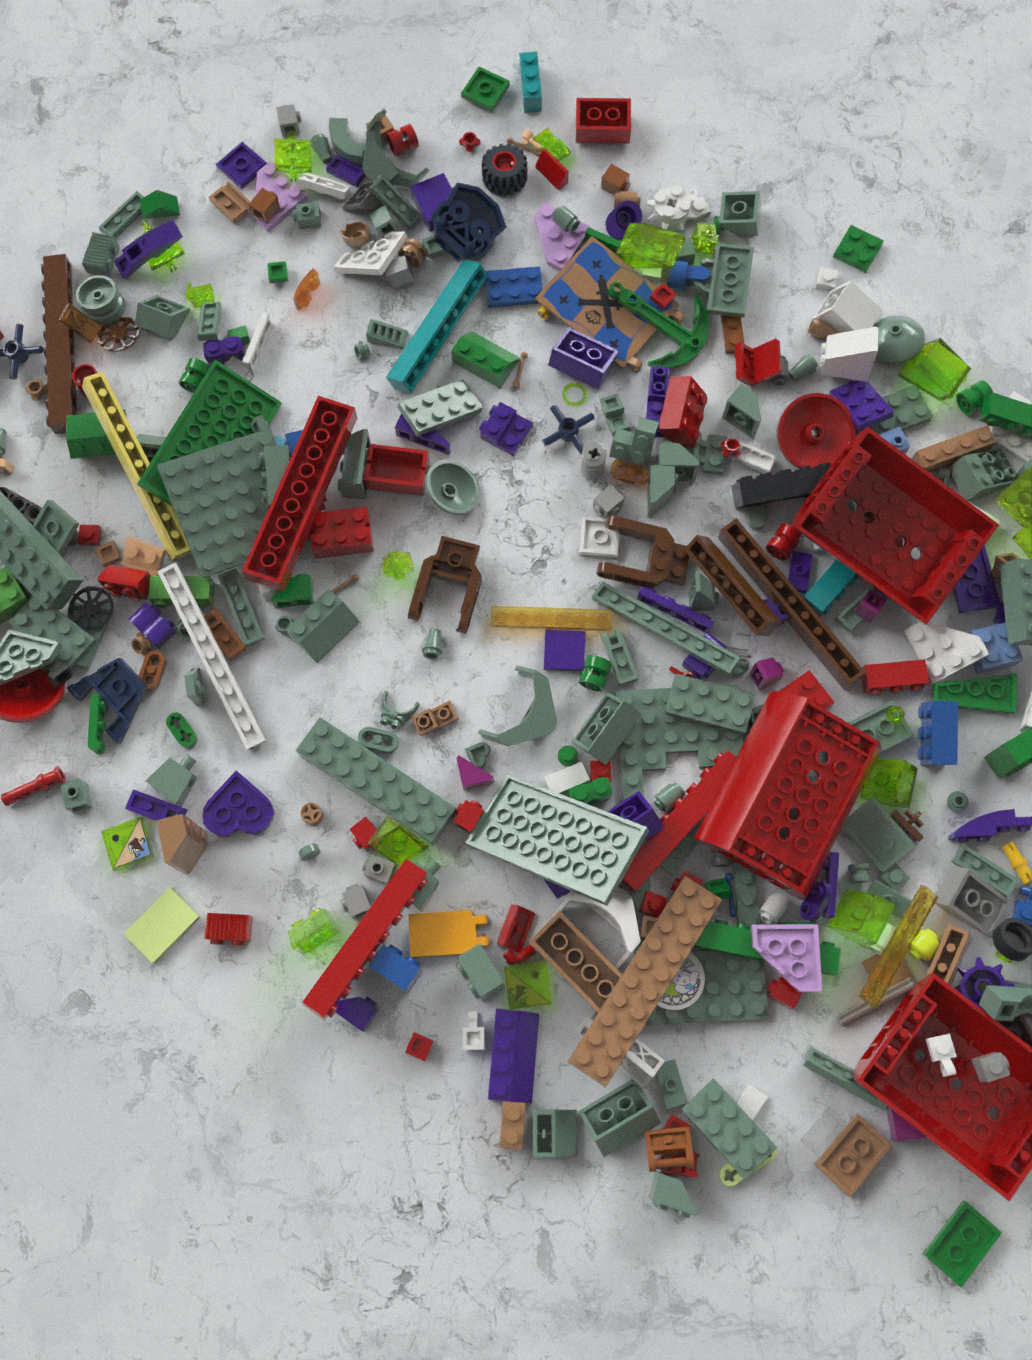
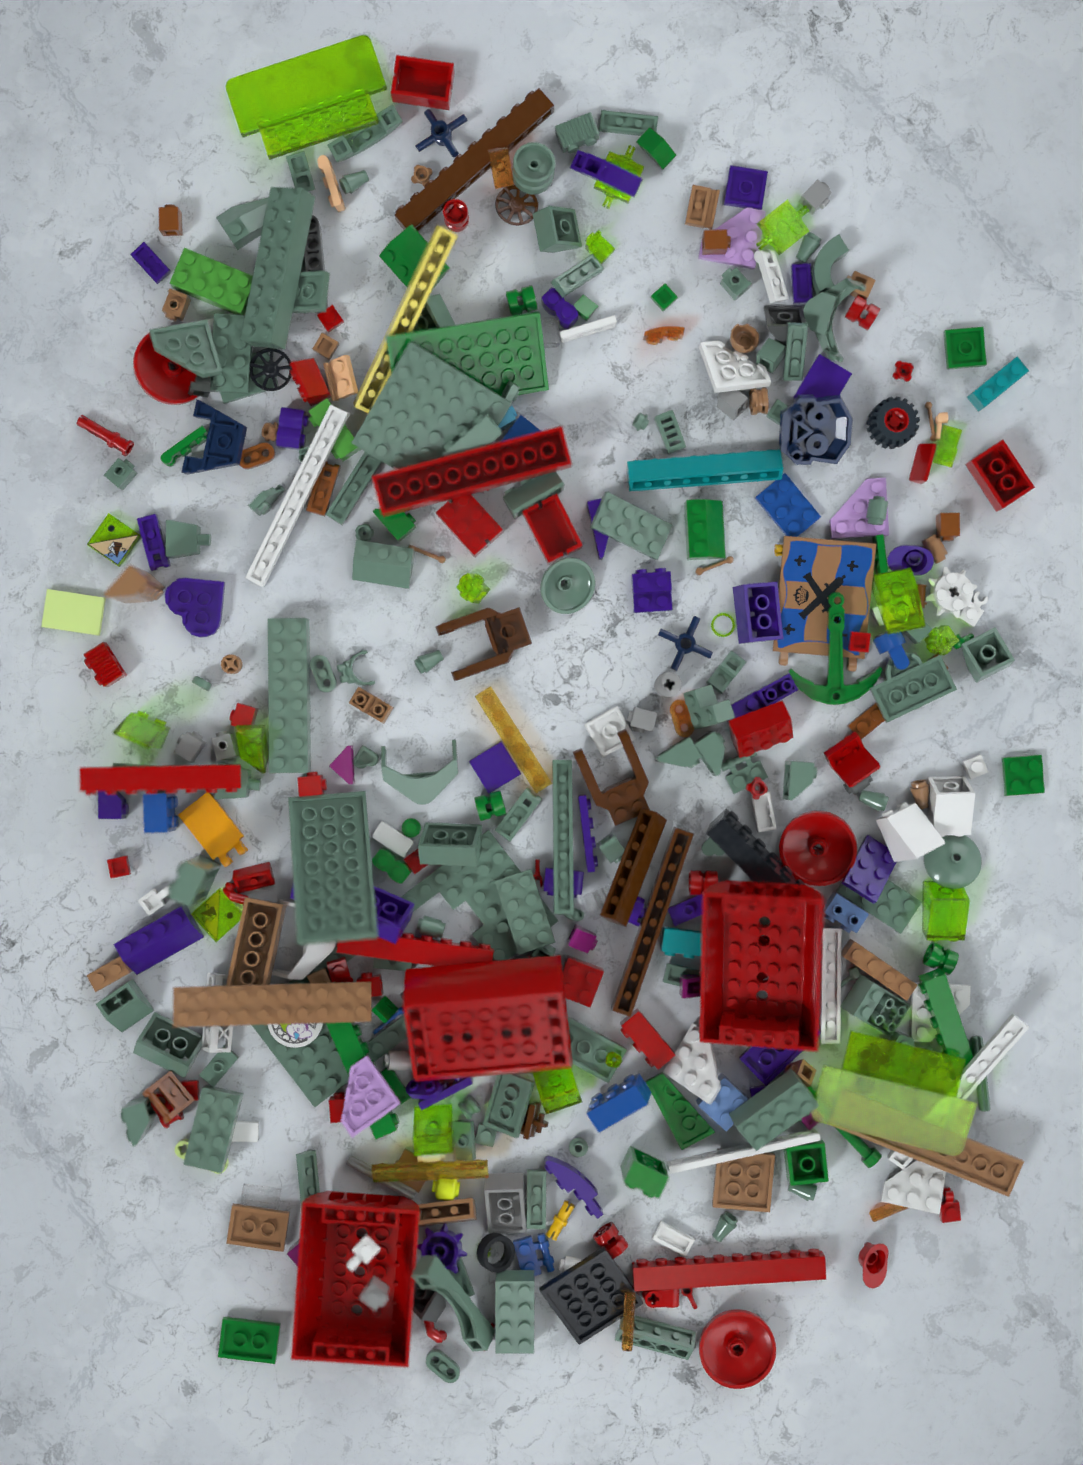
camera: 50 degrees right, 15 degrees up
(185, 727) = (231, 516): green beam -> none

